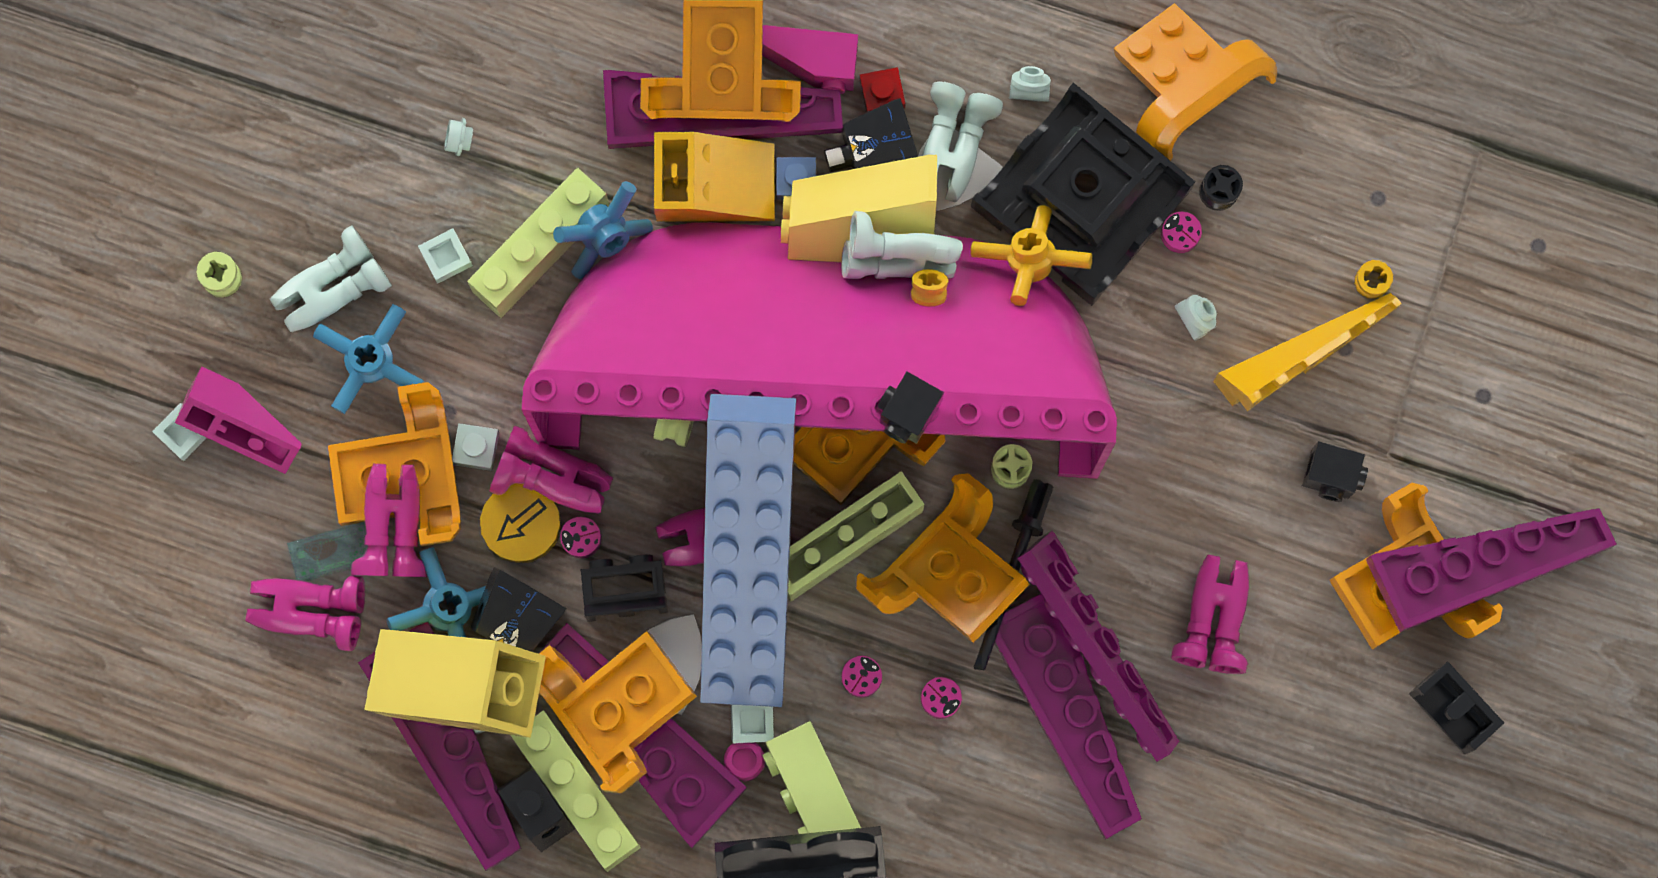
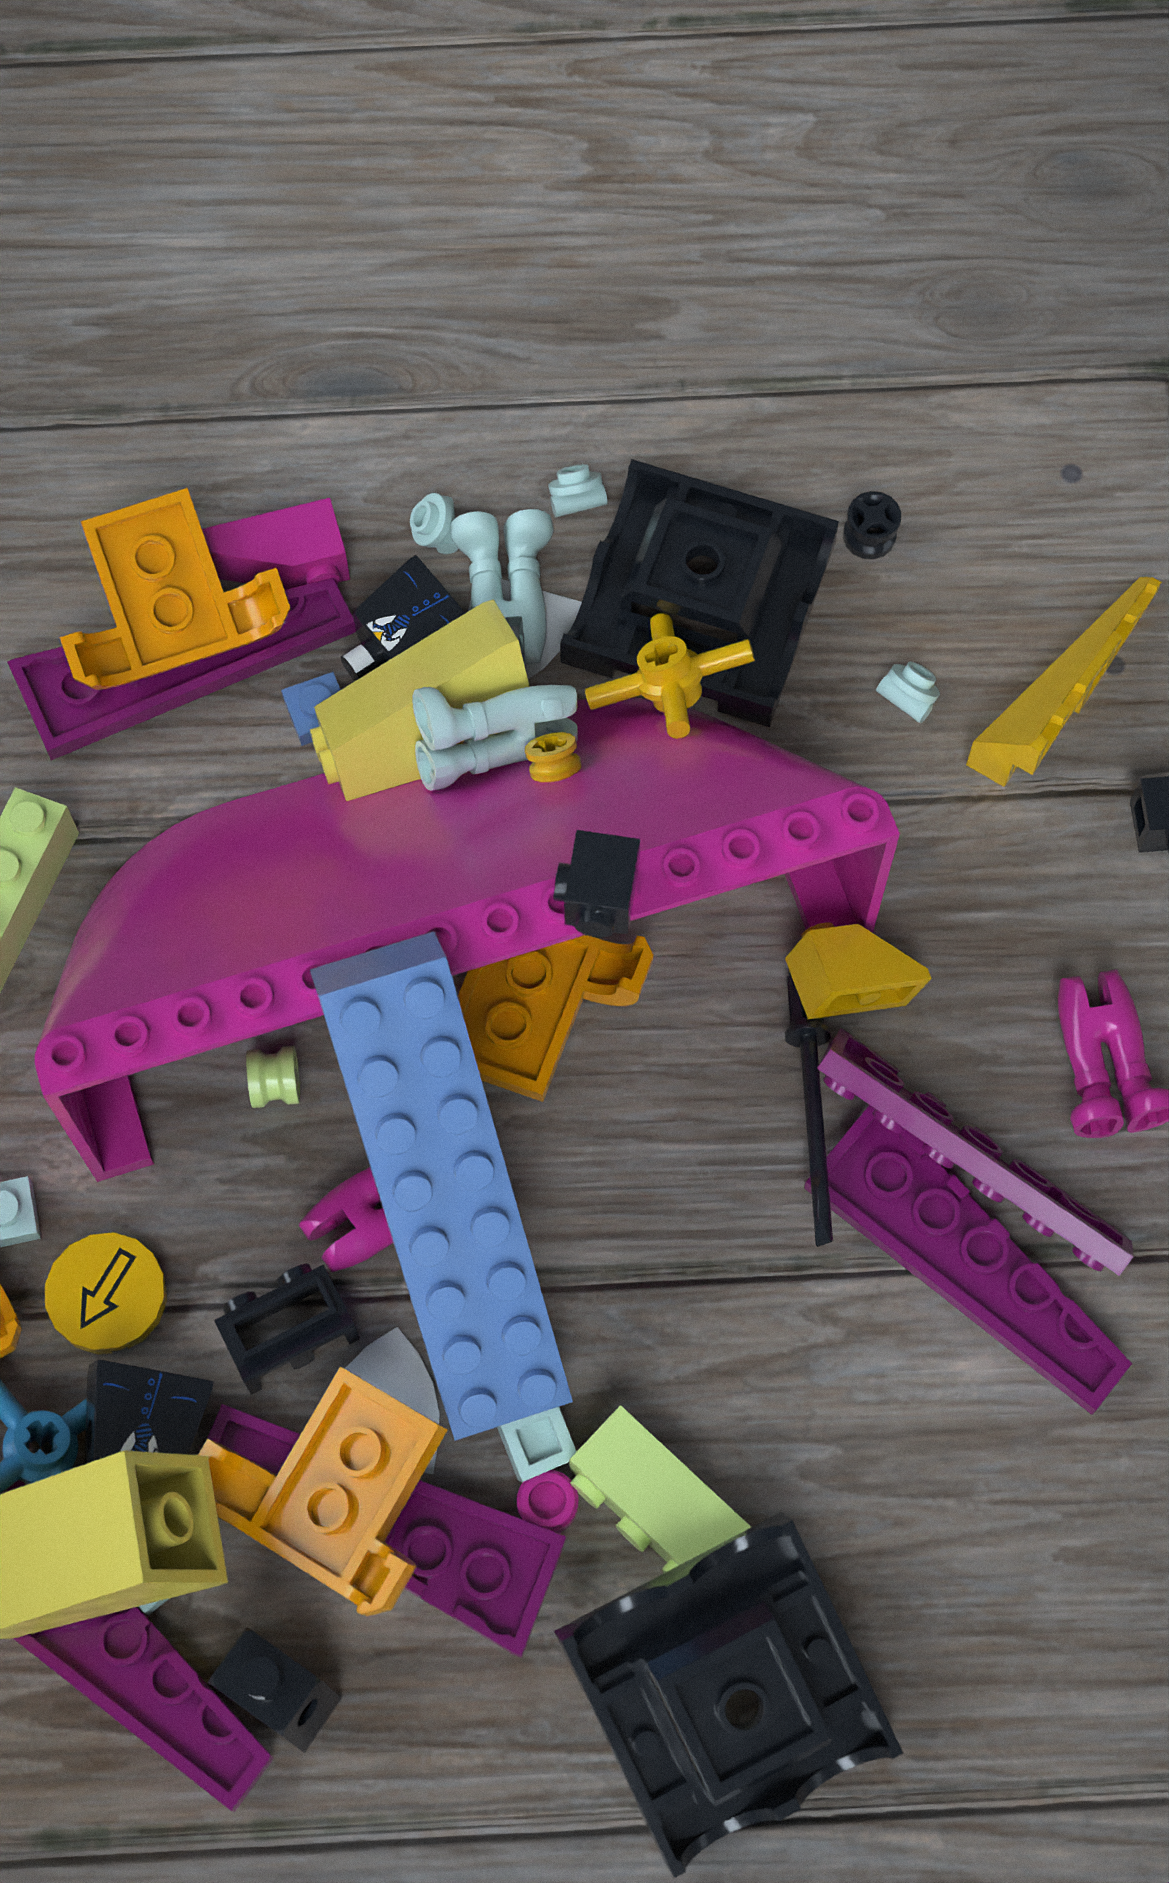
camera: 20 degrees left, 10 degrees down
(574, 488) = (123, 1206): dark pink piece -> none
(577, 793) = (326, 1641): yellowish green brick -> none
(580, 537) = (198, 1280): dark pink tile -> none
(603, 230) = (79, 854): dark azure bar -> none
(712, 178) = (204, 743): yellow slope -> none
(851, 533) = (578, 1122): yellowish green brick -> none
(861, 676) = (664, 1321): dark pink tile -> none
(881, 88) = (382, 557): red plate -> none
(923, 72) = (432, 523): none -> light aqua plate
(941, 698) = (785, 1307): dark pink tile -> none
(951, 567) = (729, 1123): light orange piece -> none
(1011, 458) = (750, 951): yellowish green wheel -> none
(1071, 498) = (851, 971): none -> yellow slope
(1181, 232) = (844, 597): dark pink tile -> none
(1186, 73) = (768, 402): light orange piece -> none
(1381, 288) = (1123, 554): yellow bush -> none

